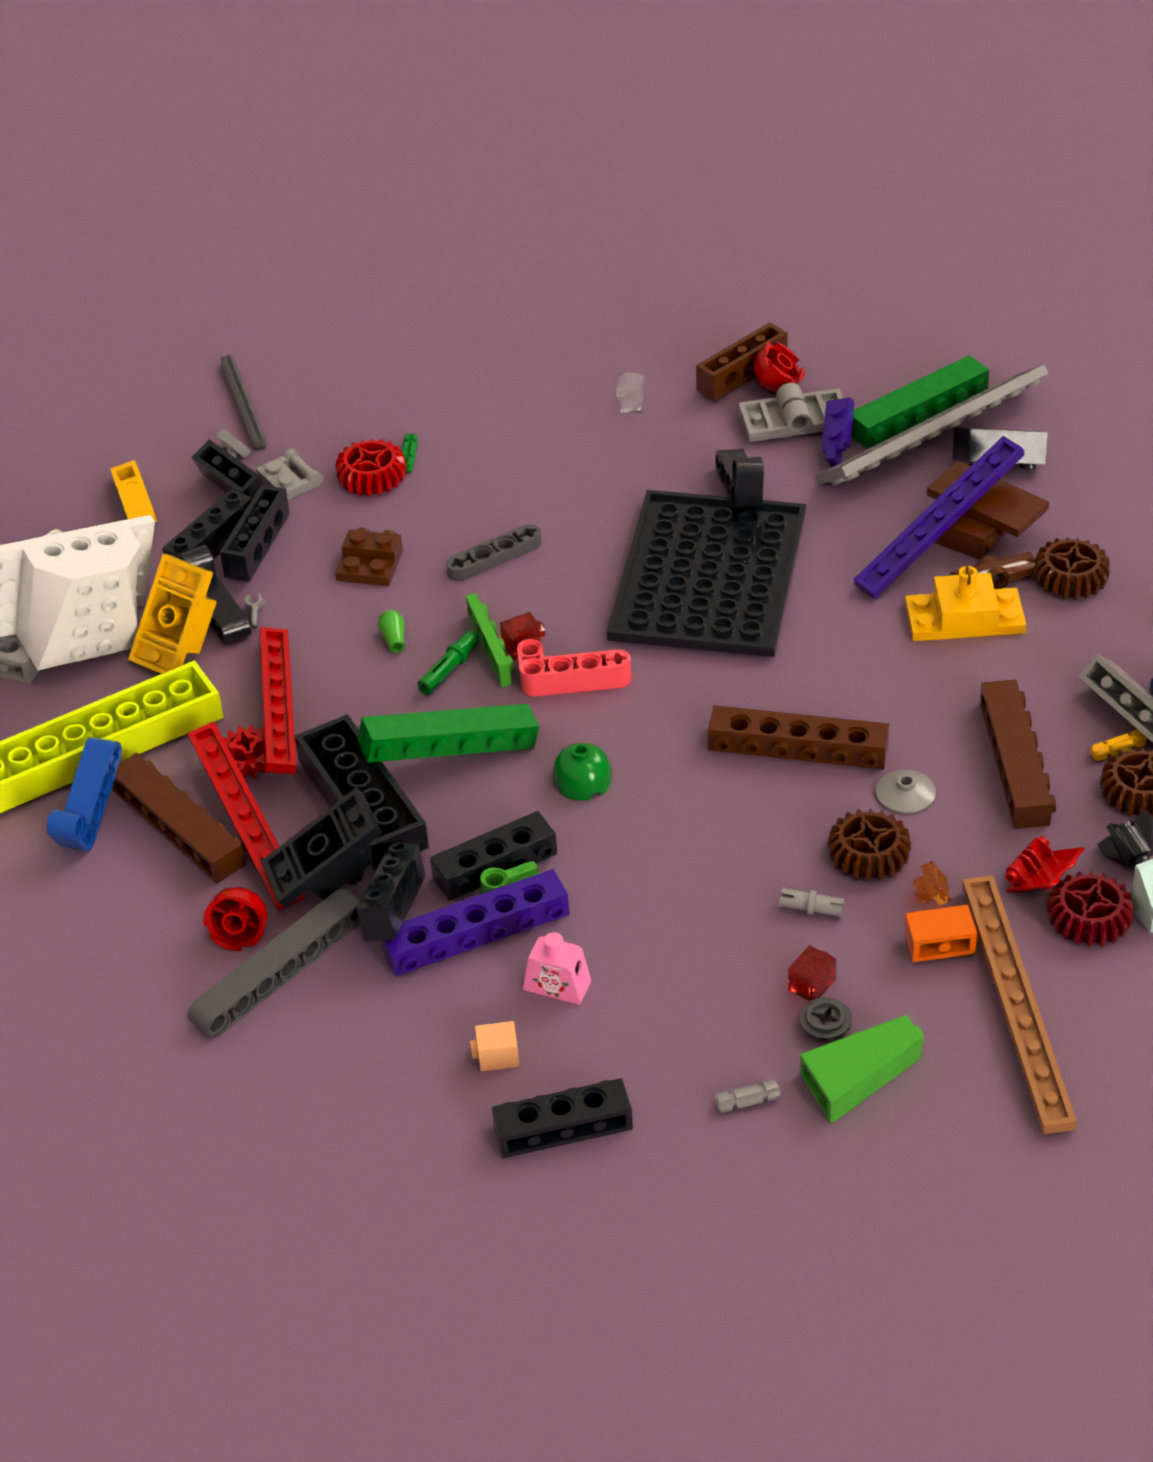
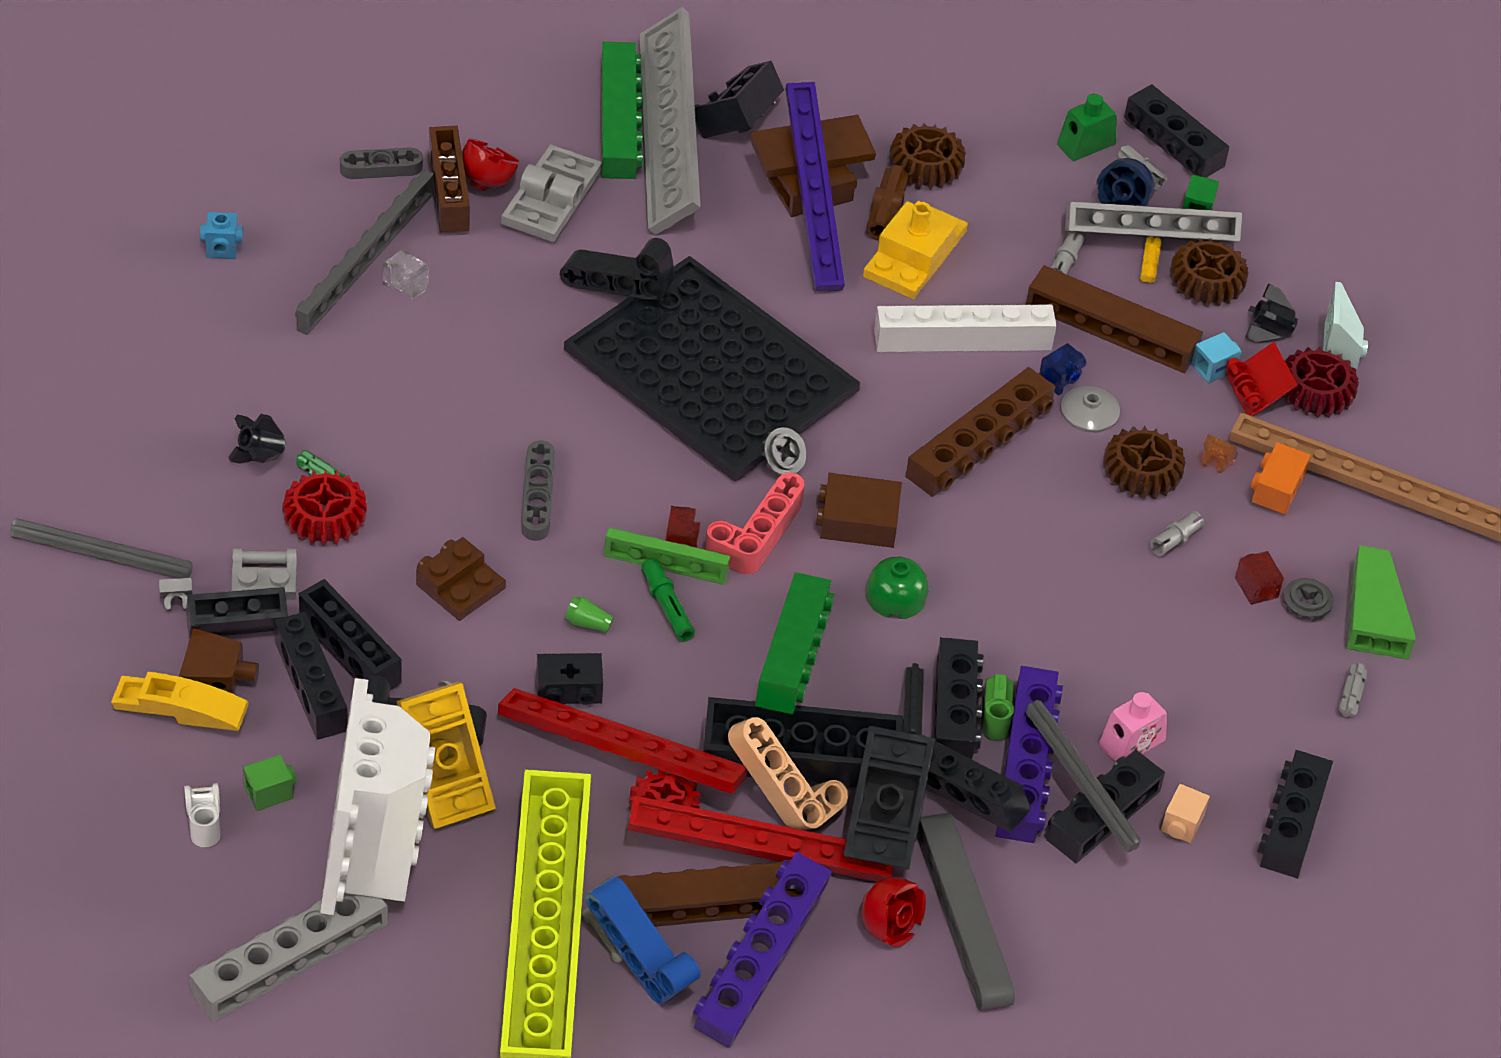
camera: 65 degrees left, 5 degrees up
(132, 860) = (726, 1022): none -> dark purple brick
(178, 492) = (217, 661): none -> reddish brown torso
(295, 783) = (783, 771): none -> light nougat beam
(320, 651) = (570, 677): none -> black brick
(397, 408) = (257, 440): none -> black brick
(452, 829) = (913, 700): none -> black axle
(460, 955) = (1083, 776): none -> dark grey axle
(460, 993) = (1130, 786): none -> black brick
(572, 302) = (221, 235): none -> dark azure brick
(606, 367) = (365, 252): none -> dark grey plate
(640, 713) = (859, 510): none -> reddish brown brick
(642, 640) = (793, 446): none -> gear
(719, 325) = (362, 171): none -> dark grey beam
(837, 429) = (613, 177): dark purple hinge -> none
(901, 676) = (964, 328): none -> white brick
(922, 749) = (1062, 367): none -> clear blue brick
(1045, 824) = (1212, 356): none -> medium azure brick
(1058, 695) = (1067, 254): none -> light grey pin

